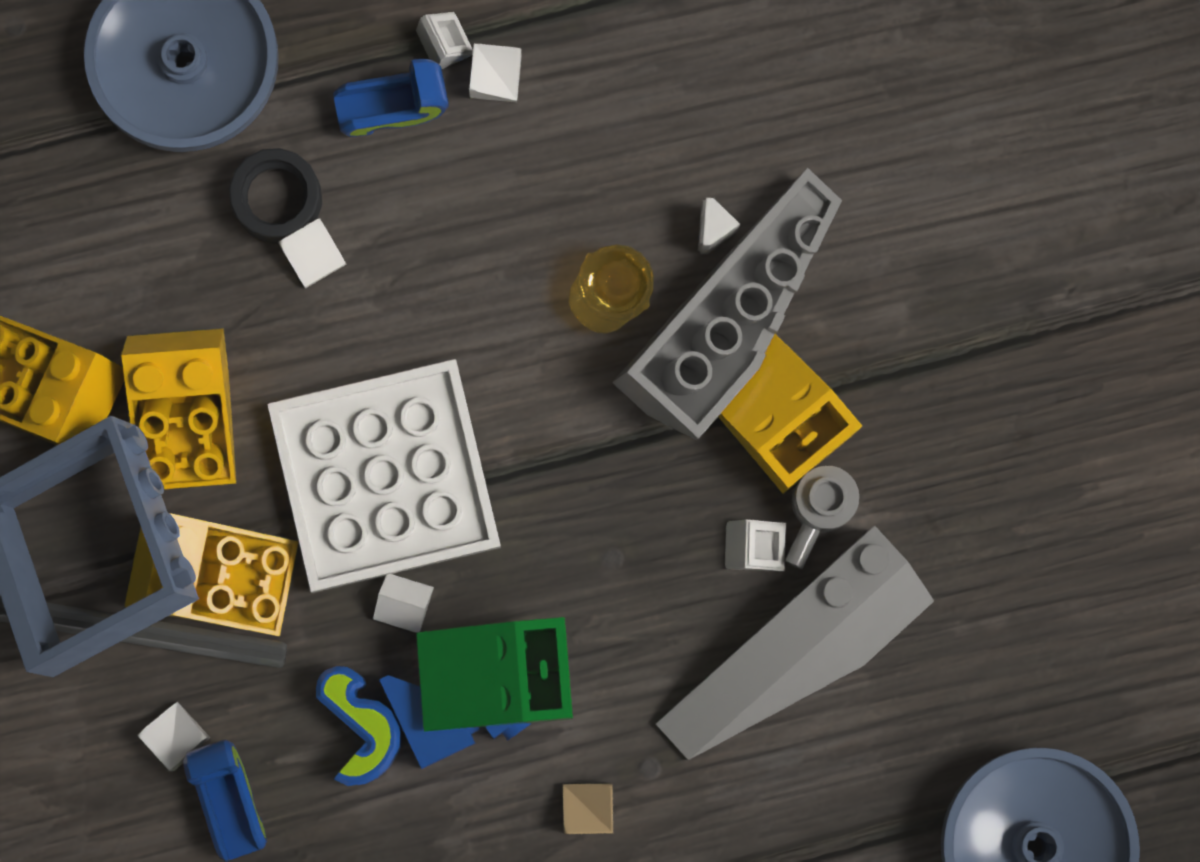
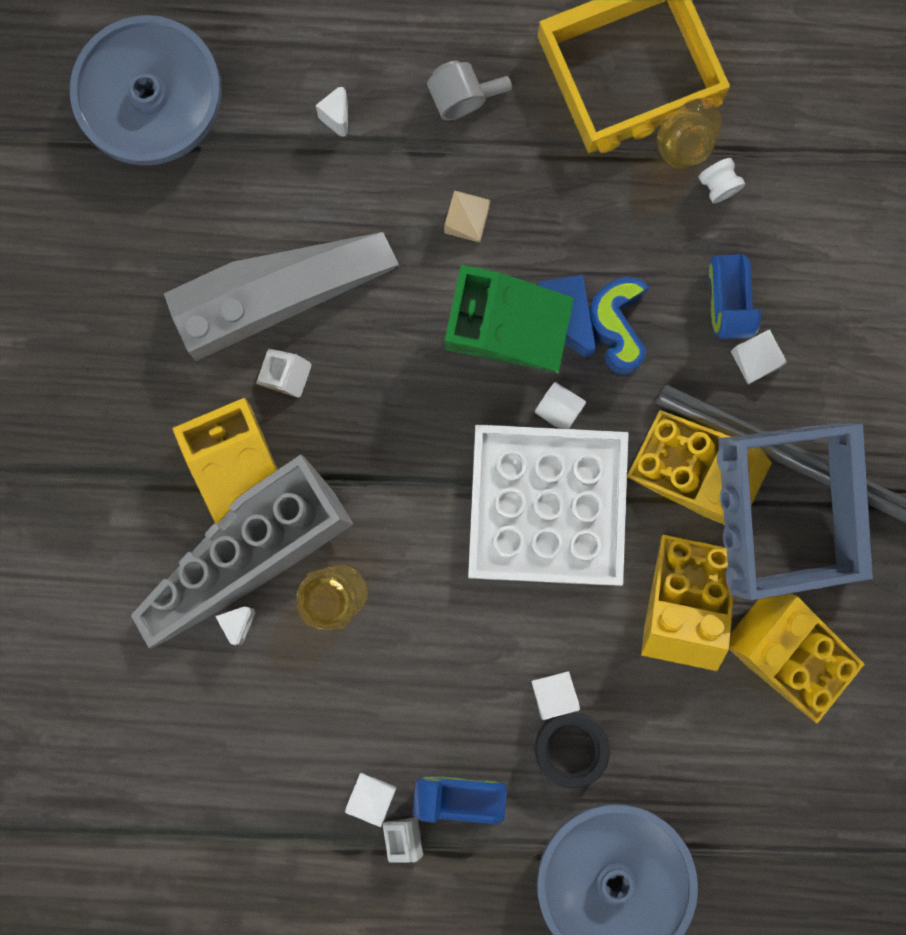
camera: 155 degrees left, 0 degrees up
(821, 503) = (222, 384): light grey piece -> none

